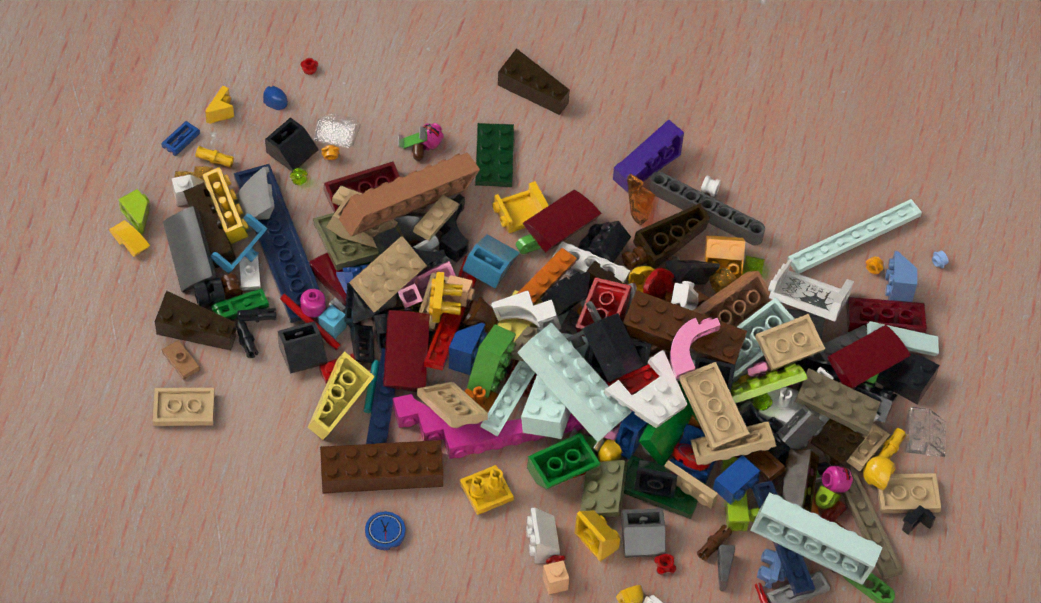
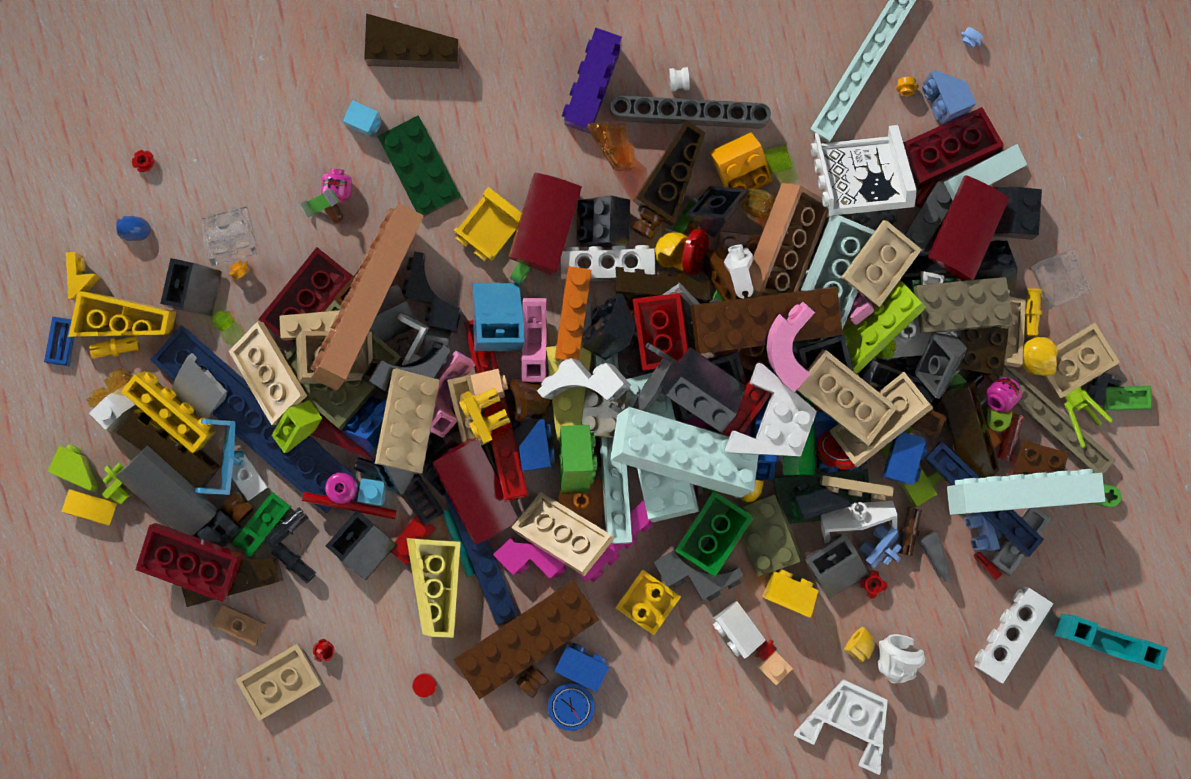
camera: 25 degrees left, 30 degrees up
(156, 234) = (115, 490): none -> lime hips
(177, 291) = (188, 562): none -> dark red slope
(229, 137) = (113, 316): none -> yellow wedge
(233, 402) = (323, 650): none -> red plate
(286, 463) = (424, 685): none -> red tile
(307, 251) = (296, 425): none -> lime slope
(308, 214) = (267, 372): none -> tan plate
(367, 496) = (532, 681): none -> reddish brown wheel
(410, 506) = (582, 667): none -> blue brick
(436, 217) = (410, 304): tan plate -> none
(473, 108) = (362, 119): none -> medium azure brick
(513, 280) = (535, 336): none -> bright pink arch
(520, 479) = (674, 571): none -> dark grey arch
(682, 505) = (858, 517): none -> white piece
(686, 541) = (888, 538): none -> medium blue hips
(894, 516) = (1080, 399): none -> lime plant
(934, 536) = (1128, 398): none -> bright green plate

